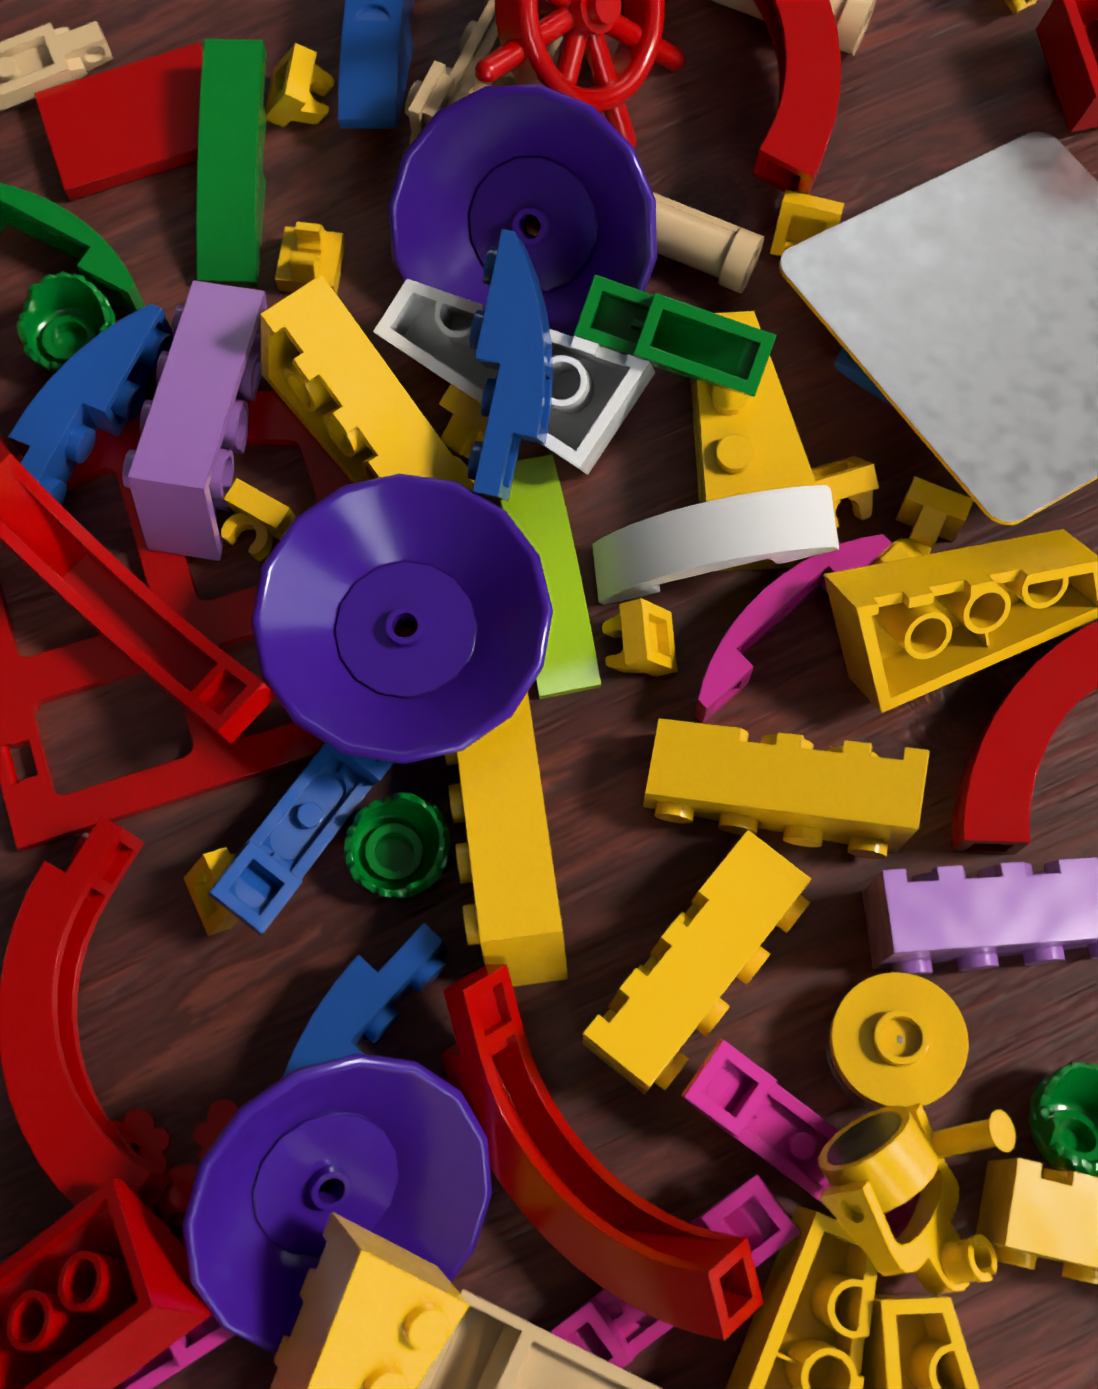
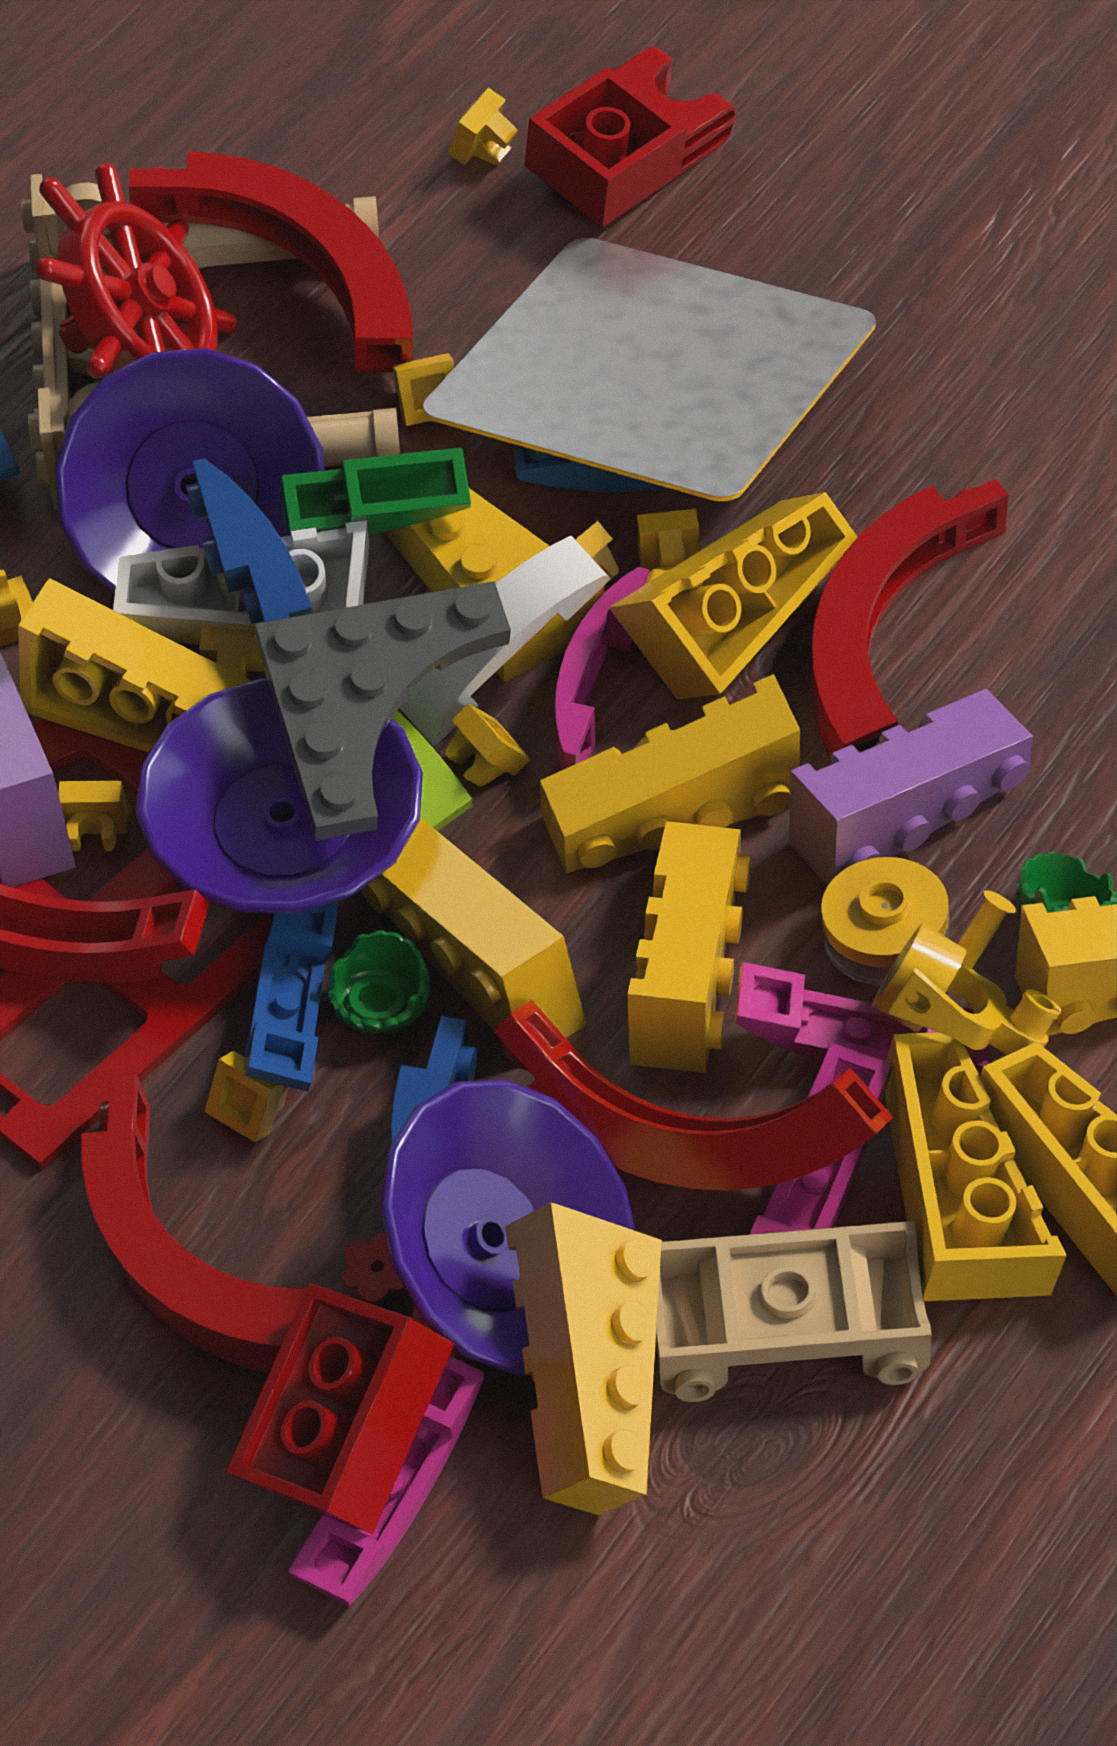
camera: 30 degrees left, 20 degrees down
(521, 530) = (346, 676): none -> dark grey plate

